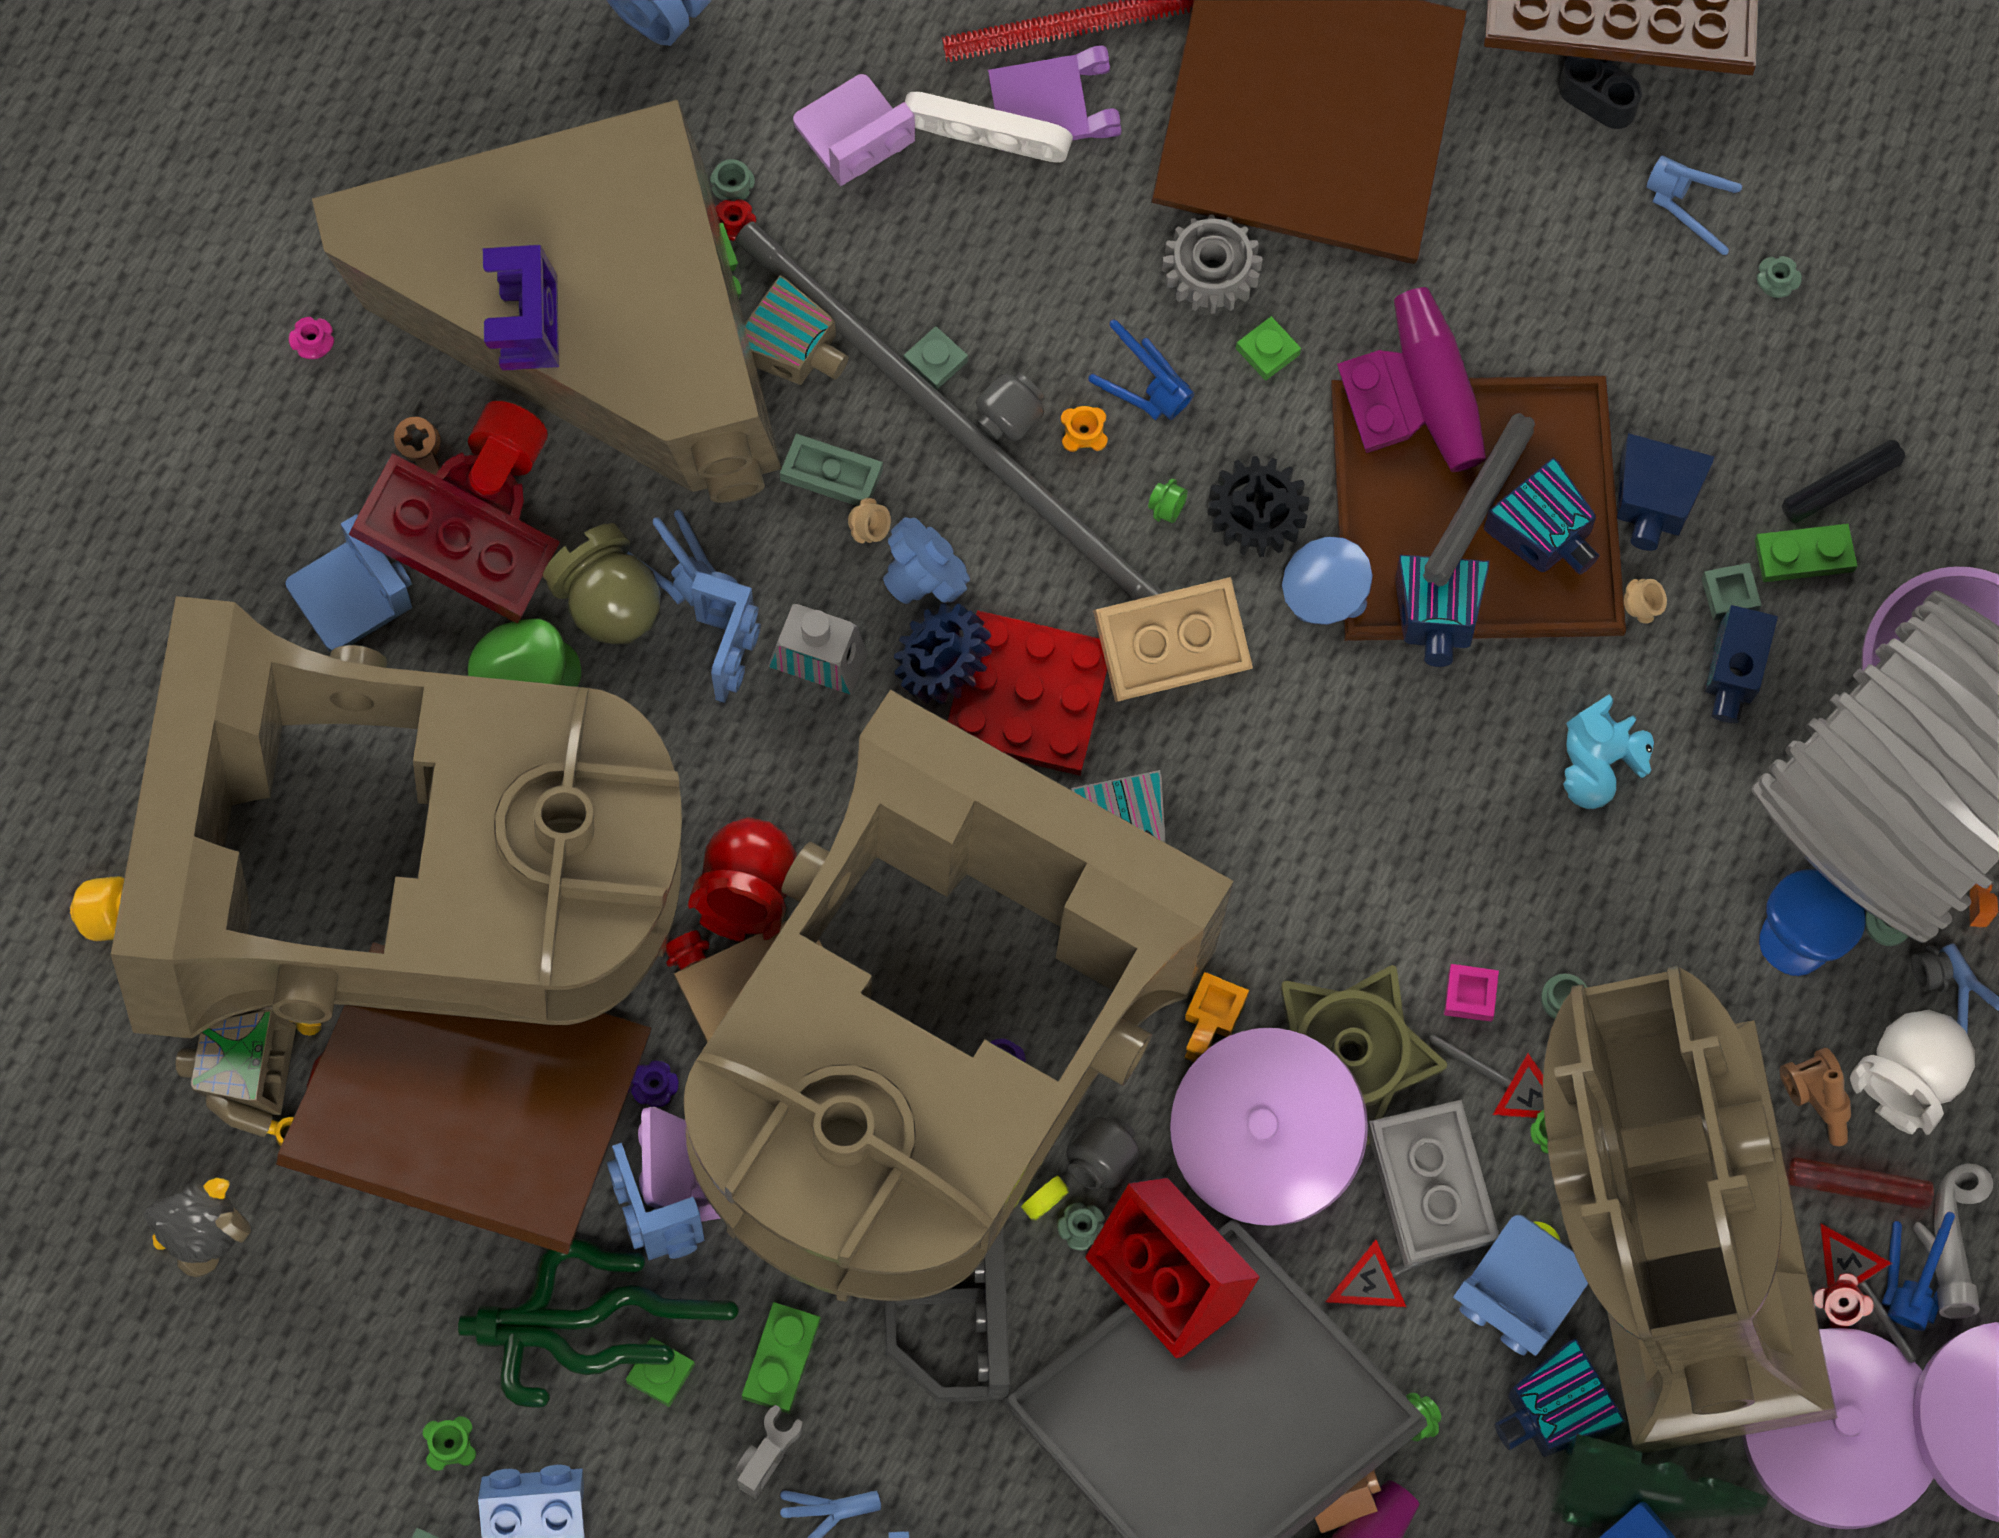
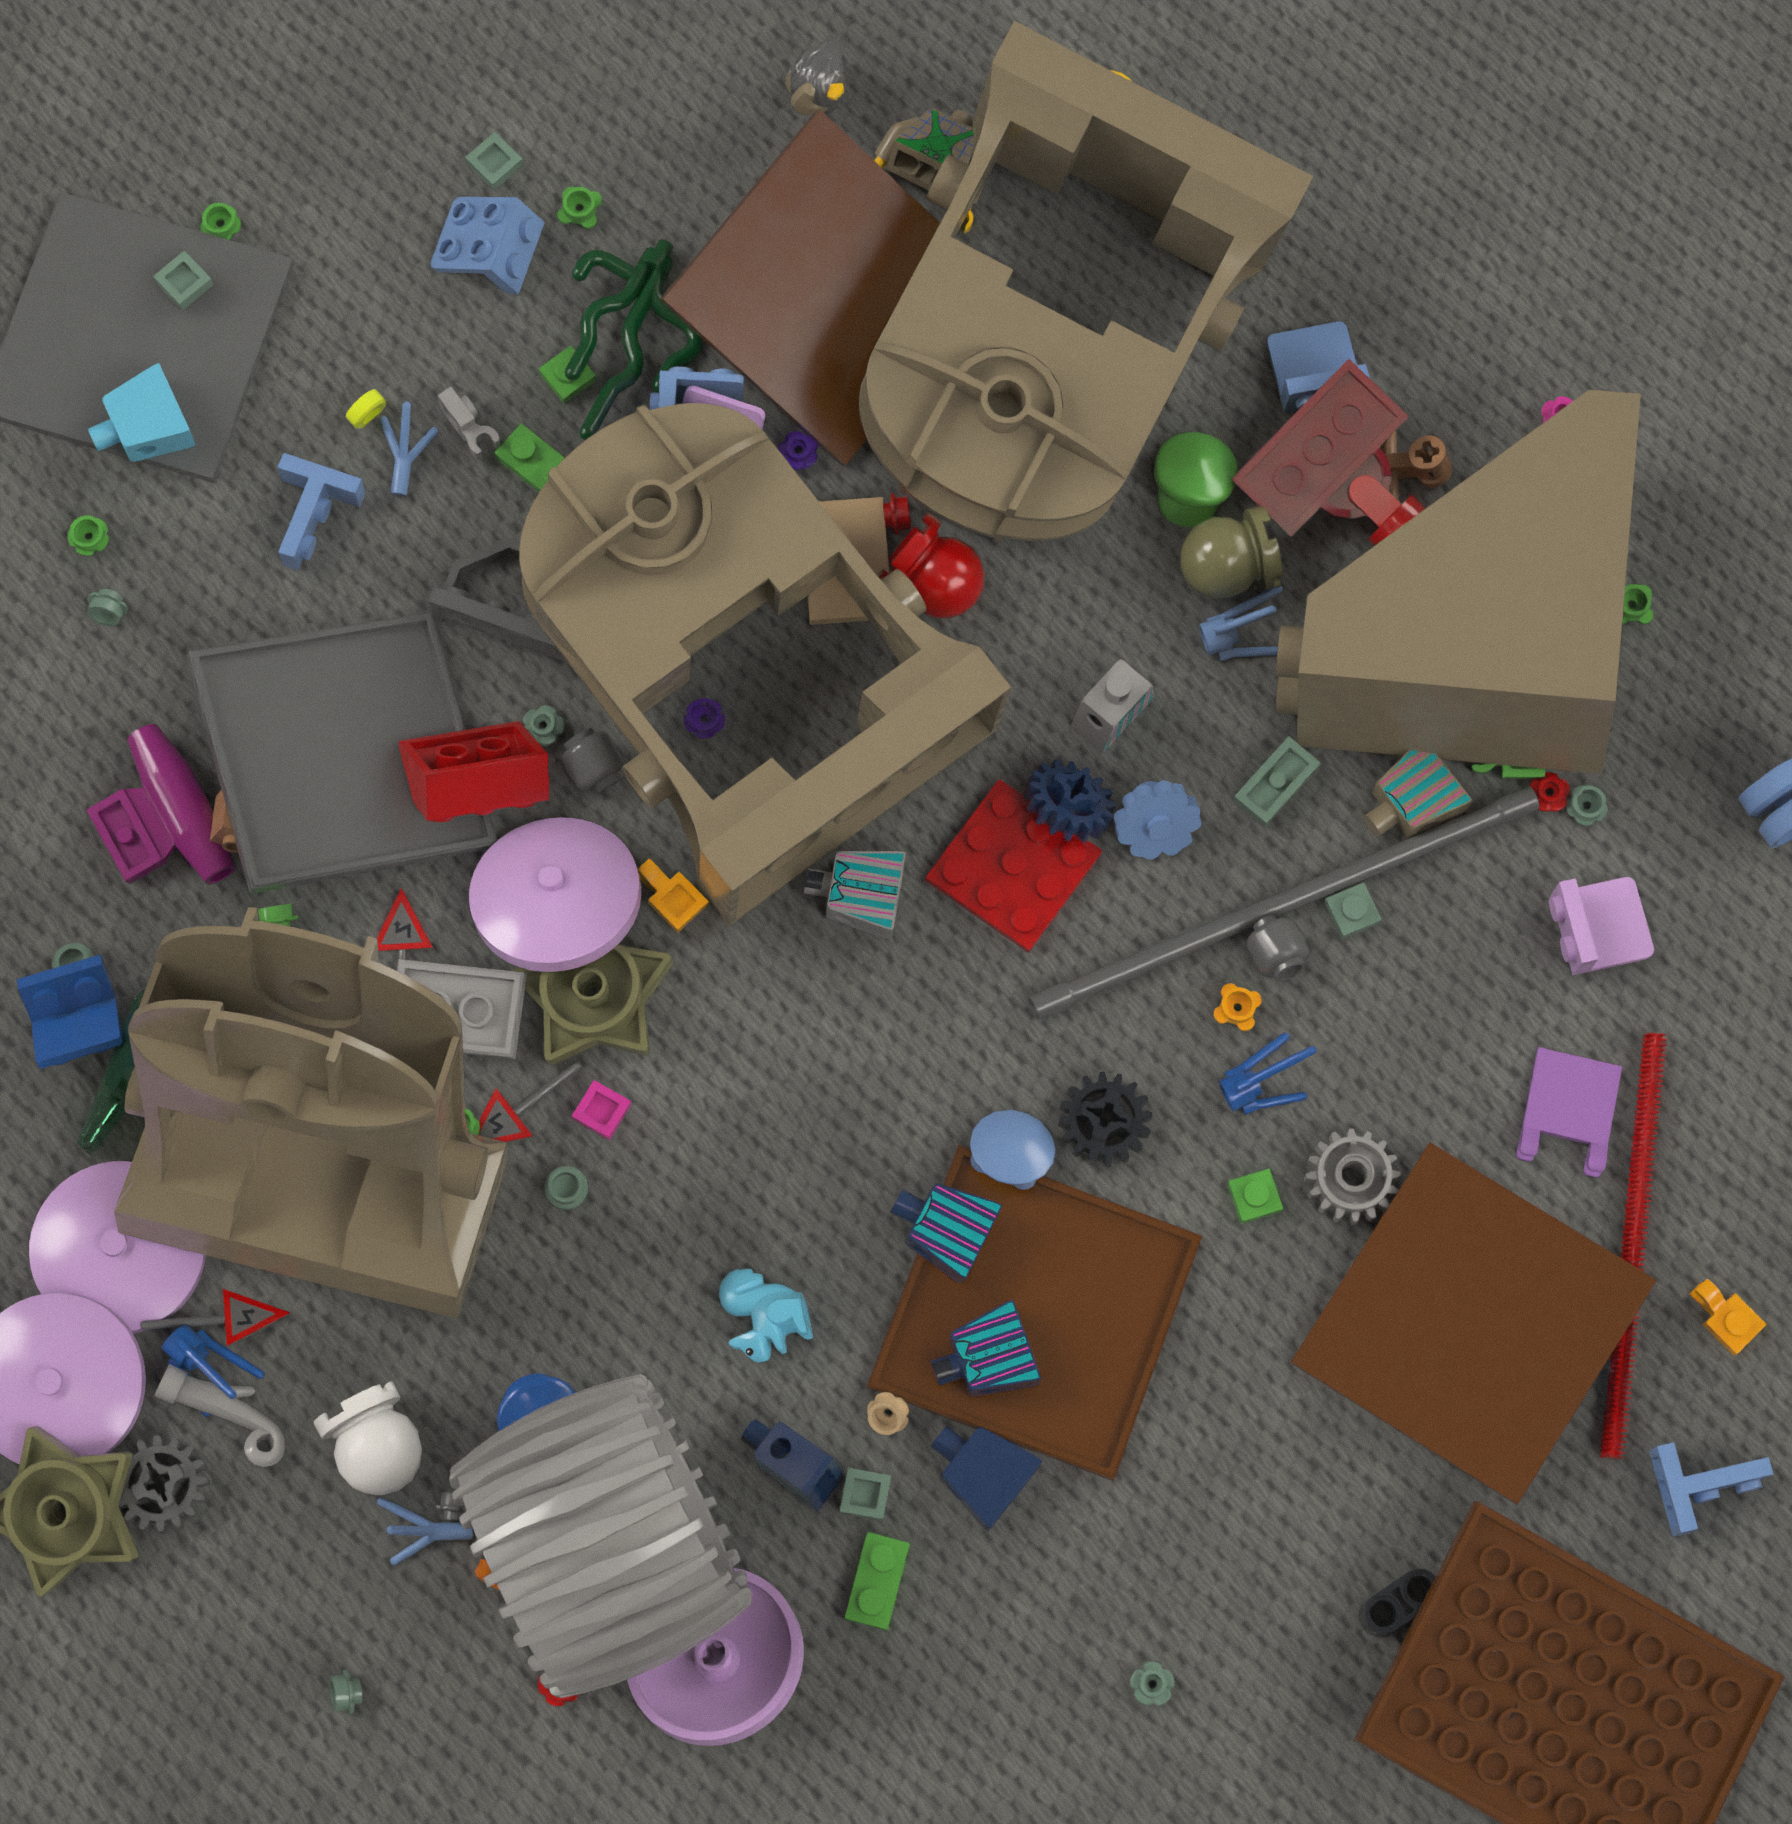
camera: 110 degrees right, 5 degrees up
(532, 337) = (1456, 516): dark purple panel -> none
(728, 606) = (1155, 648): medium blue bracket -> none
(869, 521) = (1217, 794): tan plate -> none
(989, 127) = (1558, 1034): white beam -> none
(1045, 1198) = (575, 704): neon yellow tile -> none
(1167, 501) = (1141, 1047): bright green plate -> none
(1172, 639) = (1009, 995): tan tile -> none
(1422, 385) = (1160, 1297): magenta plate -> none
(1479, 500) = (1029, 1299): dark grey axle -> none
(1674, 179) = (1283, 1630): medium blue plant -> none
(1822, 1085) = (401, 1356): medium nougat piece -> none
(1839, 1315) = (213, 1293): plate -> none
(1843, 481) = (931, 1648): black axle -> none
(1860, 1183) = (306, 1358): clear red axle -> none

